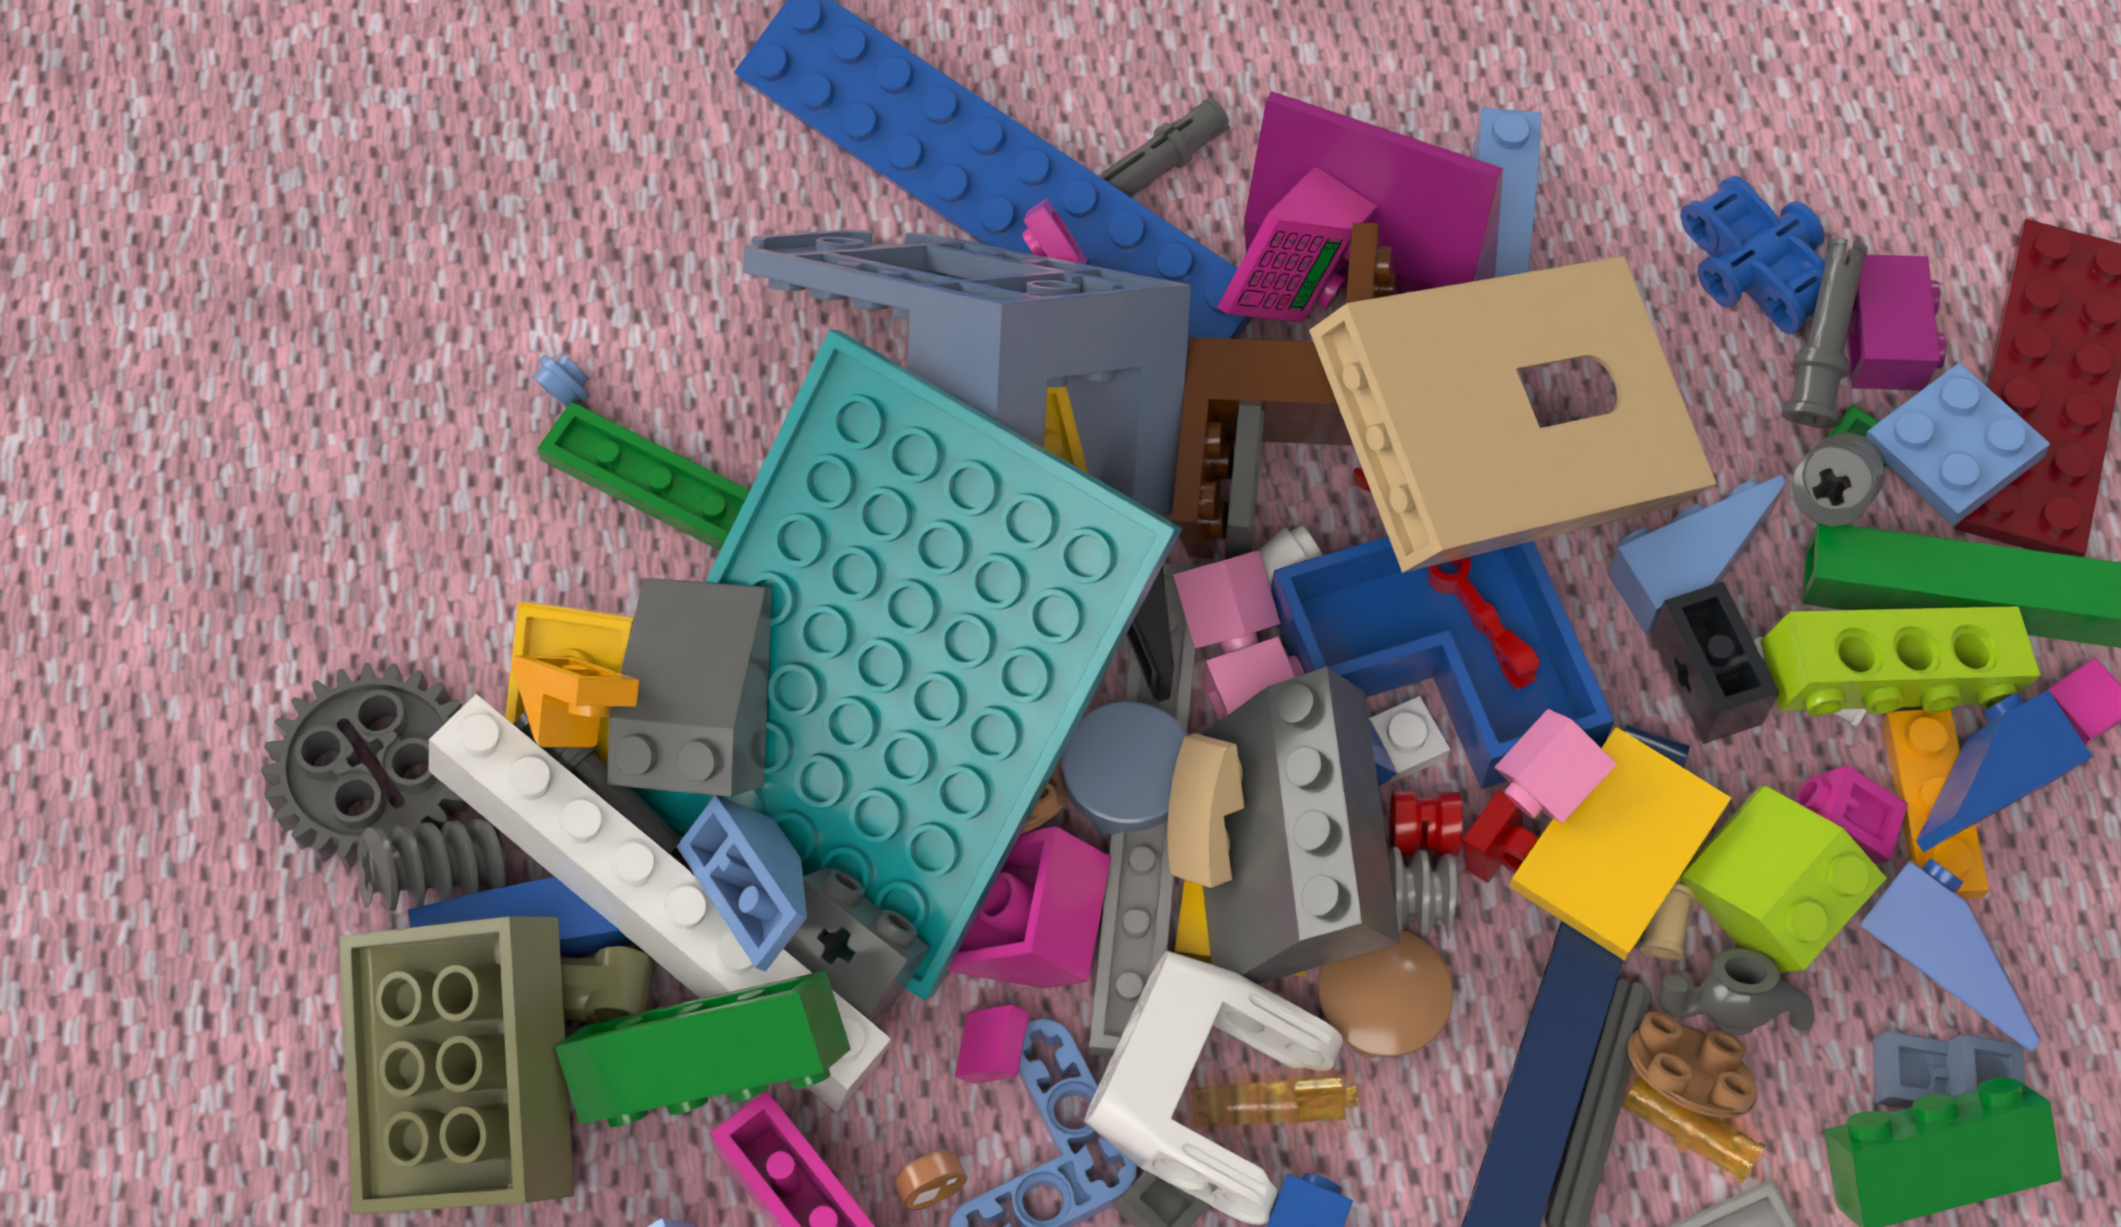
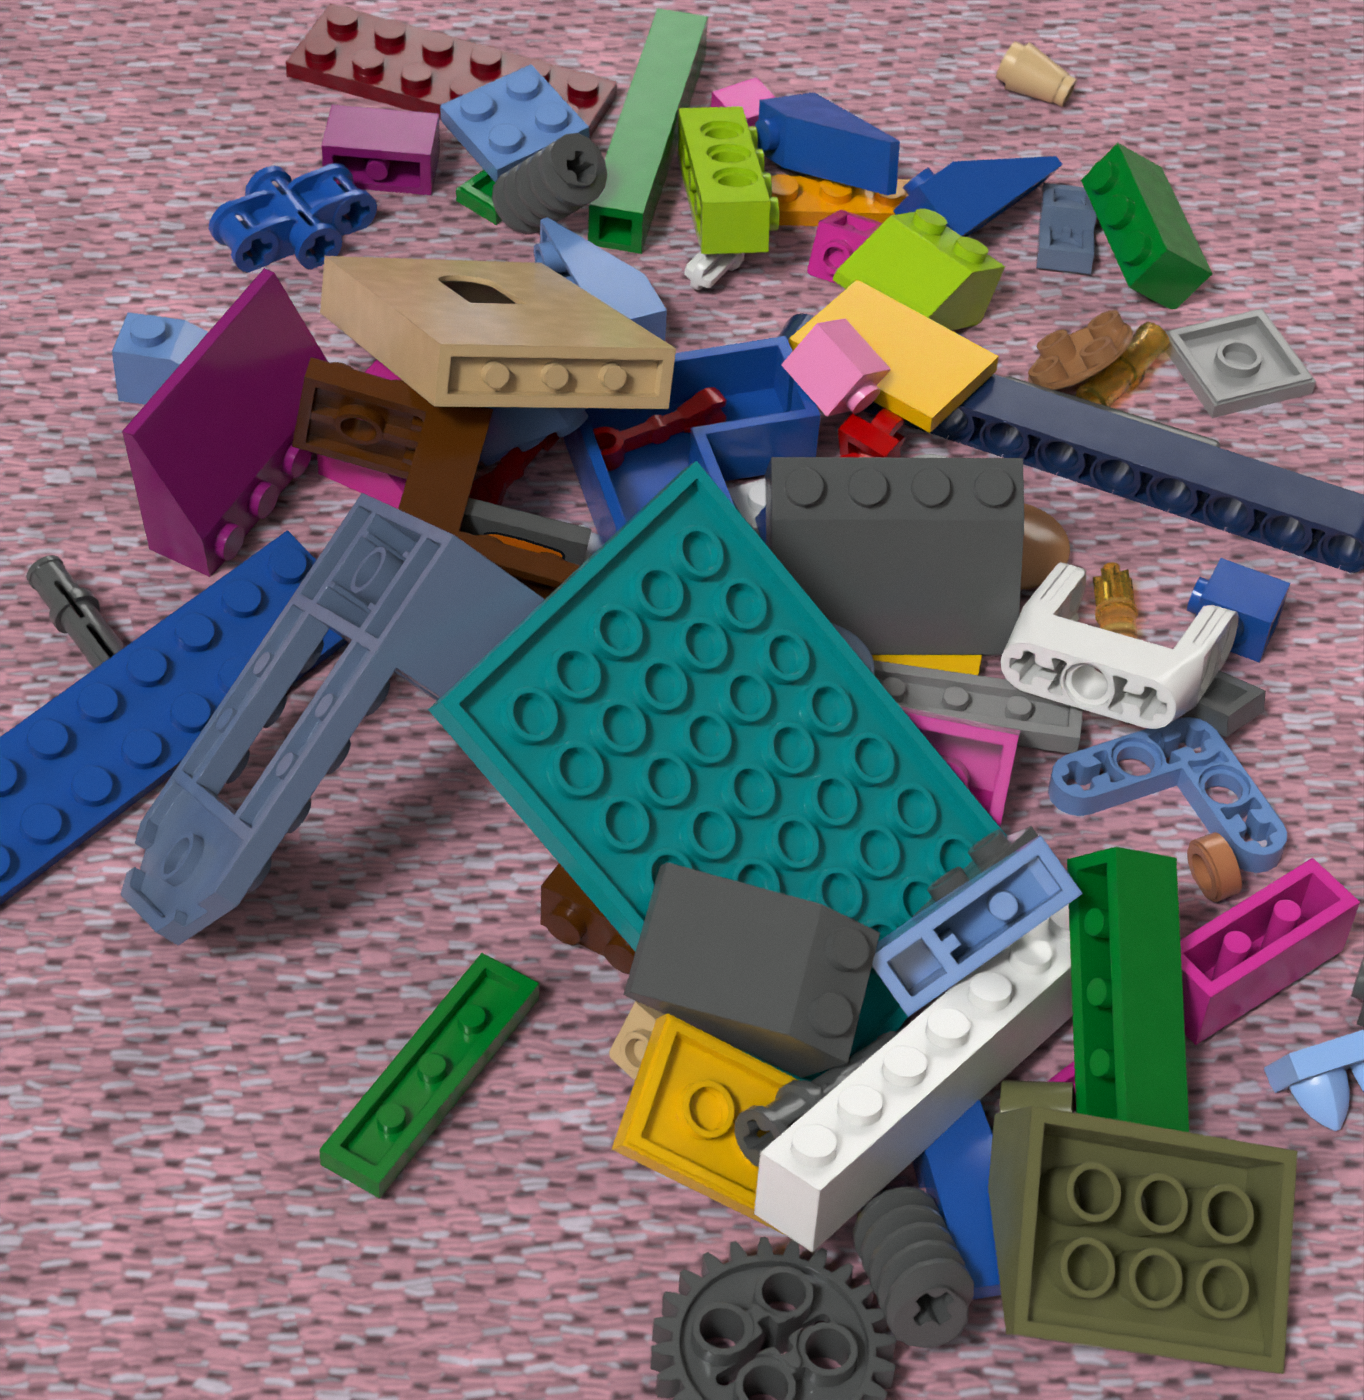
camera: 90 degrees left, 15 degrees down
(562, 379) = (283, 1165): medium blue plate -> none
(569, 697) = (749, 1072): light orange slope -> none
(992, 1044) = (1078, 813): dark pink tile -> none
(1049, 235) = (208, 670): dark pink bracket -> none
(1203, 792) = (871, 606): tan slope -> none
(1298, 252) = (267, 475): dark pink slope -> none
(1714, 662) = (717, 288): black brick -> none
(1738, 994) = (1012, 322): dark grey piece -> none
(1822, 361) = (420, 188): dark grey pin -> none

